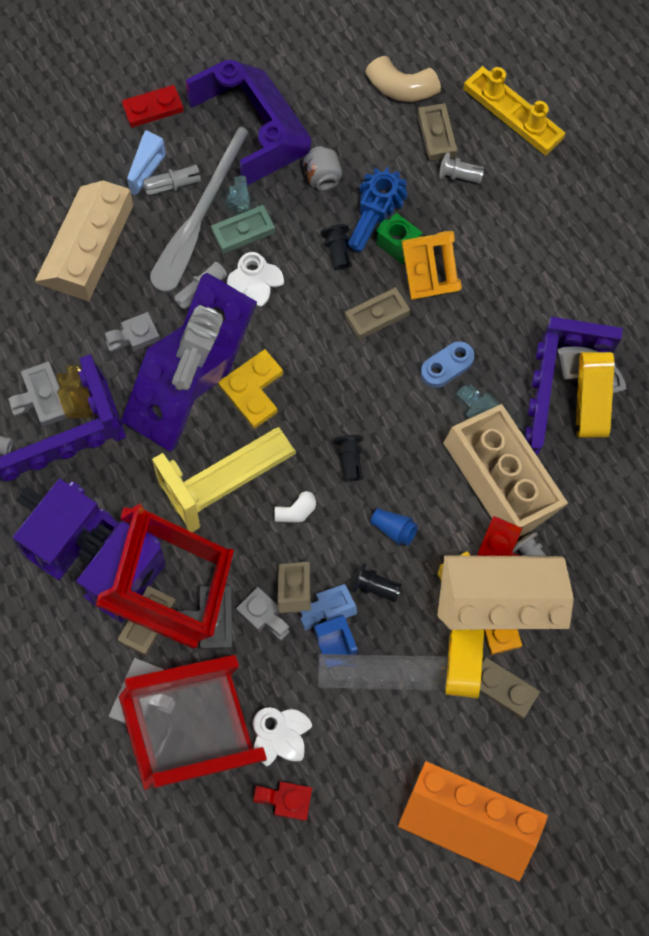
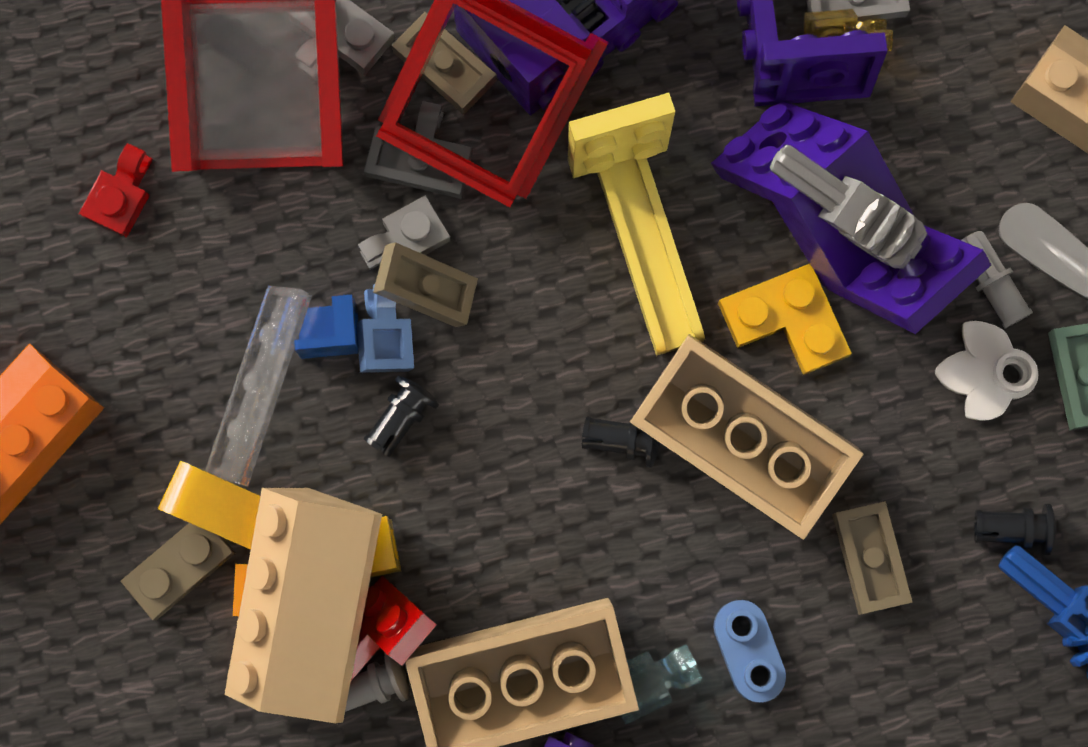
camera: 110 degrees right, 10 degrees up
(135, 332) = (931, 161): light grey plate -> none
(284, 737) = (210, 216): white plate -> none
(298, 511) = (556, 332): white arm -> none
(331, 388) = (746, 436): none -> tan slope
(395, 227) = (985, 639): green brick -> none
(395, 526) = (484, 476): blue cone -> none
(422, 267) = (937, 656): light orange plate -> none

